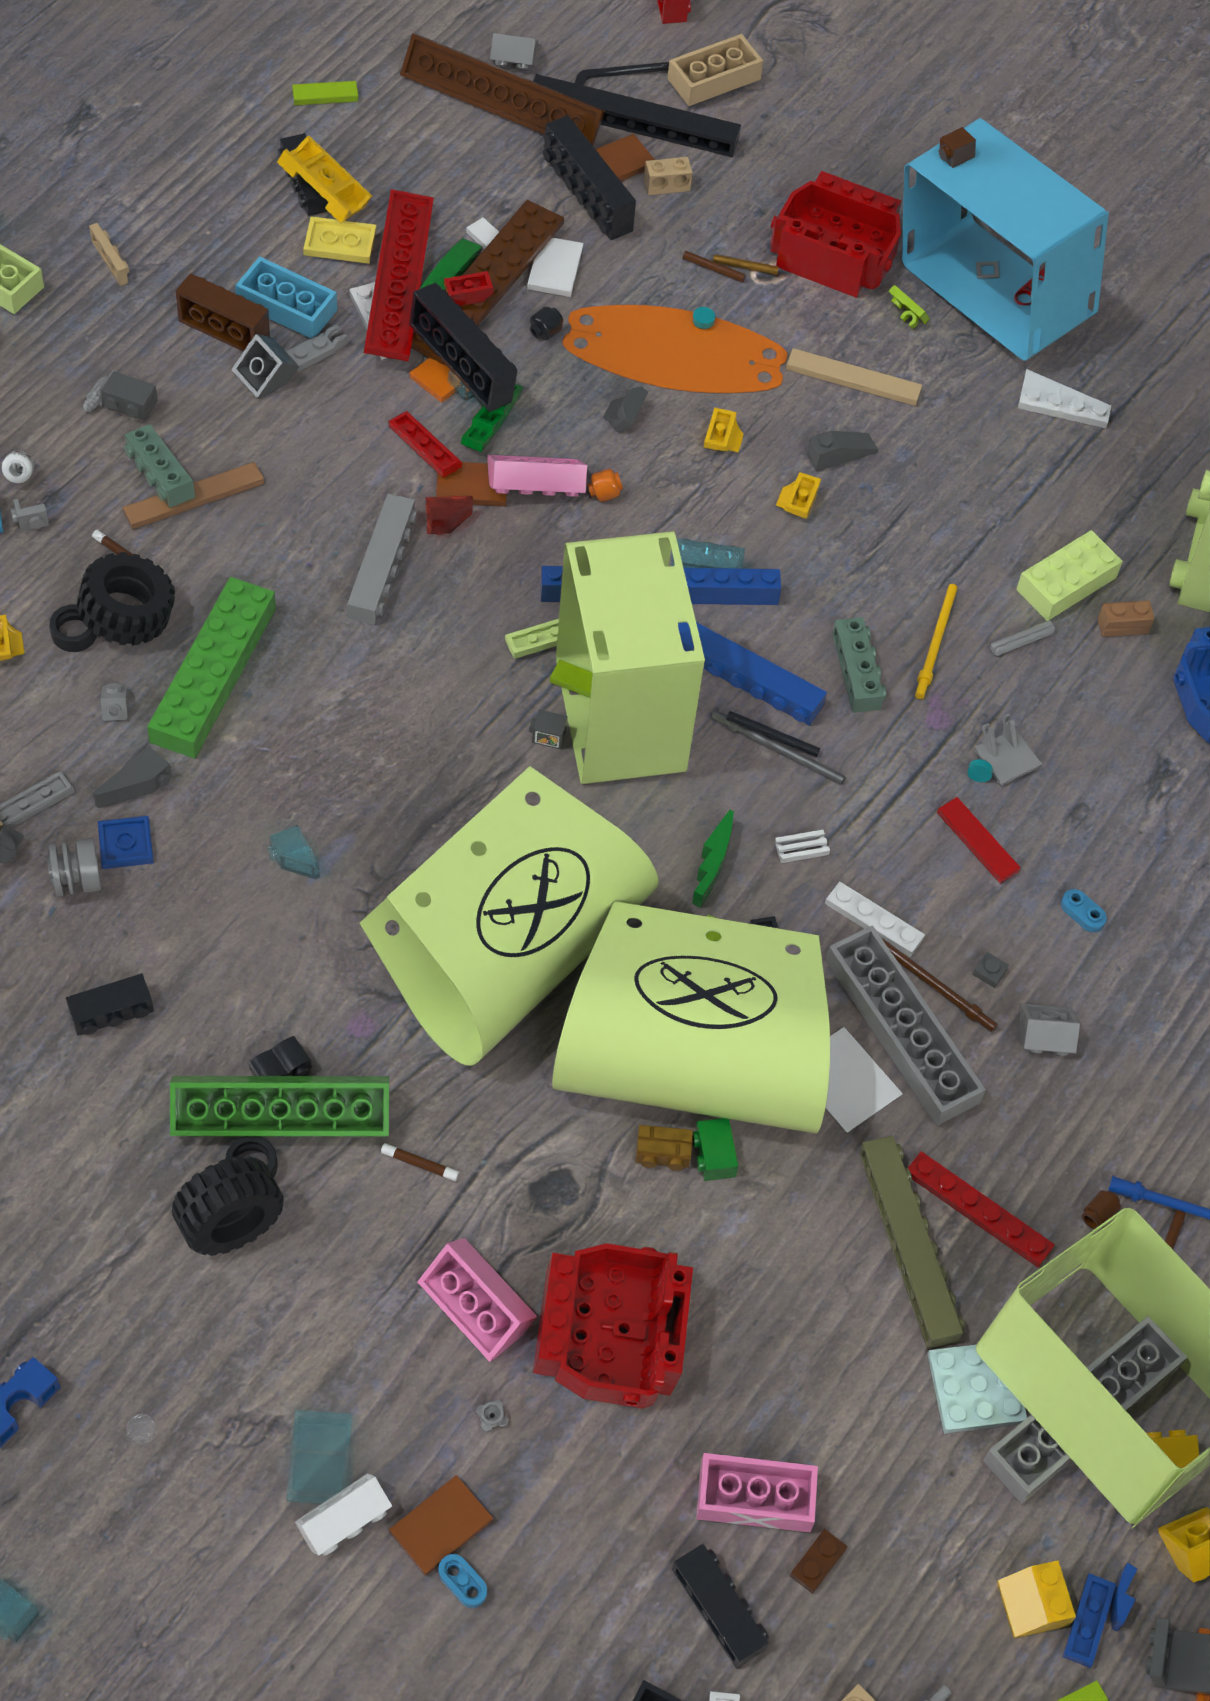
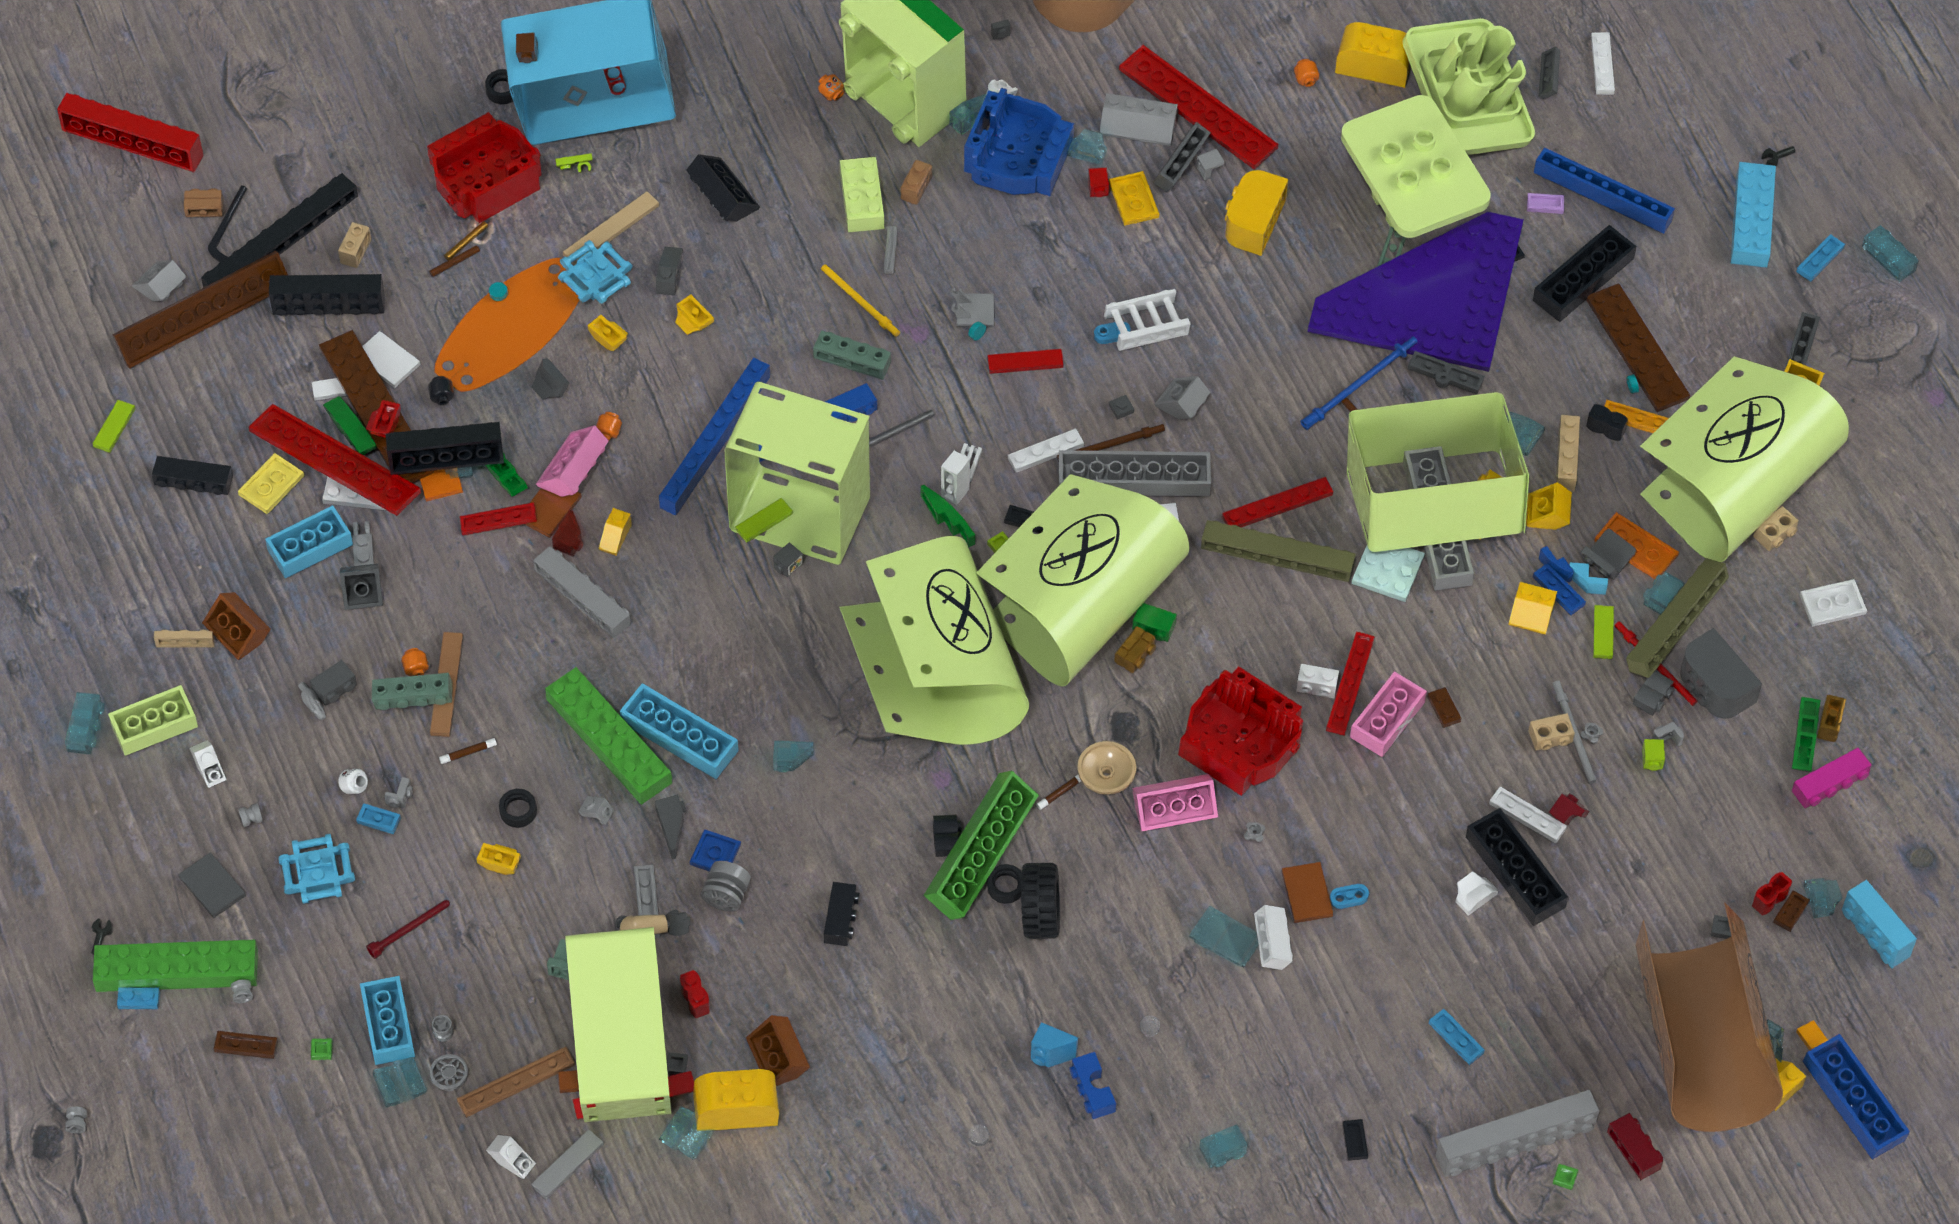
camera: 55 degrees left, 0 degrees up
(38, 1321) = (1053, 1046): none -> dark azure slope
(121, 621) = (529, 776): black tyre -> none
(153, 287) = (235, 625): none -> dark orange slope
(197, 453) = (414, 662): none -> orange head
(220, 312) = (301, 588): reddish brown brick -> none
(256, 729) = (679, 731): none -> medium azure brick
(341, 190) = (217, 459): yellow piece -> none
(473, 1179) = (1106, 758): none -> tan dish
(478, 552) = (615, 531): none -> yellow slope
(533, 639) = (709, 527): yellowish green plate -> none
(625, 156) = (314, 260): dark orange tile -> none
(628, 41) = (203, 203): none -> medium nougat brick
(709, 555) = (709, 398): clear light blue brick -> none
(715, 69) = (274, 161): tan brick -> none
(720, 1605) = (1442, 770): black brick -> none
(753, 1381) = (1317, 681): none -> white brick
(760, 835) = (955, 477): none -> white brick
(773, 734) = (886, 425): black bar -> none
(777, 1423) = (1350, 683): none -> red plate
(785, 384) = (594, 274): none -> medium azure brick
(978, 447) = (722, 187): none -> black slope
(1057, 400) = (713, 118): white wing -> none
(1101, 1209) = (1319, 439): reddish brown brick -> none
(1108, 951) = (1151, 334): none -> white fence
(1130, 1638) = (1589, 584): none -> medium azure slope
(1181, 483) = (831, 87): none -> orange head

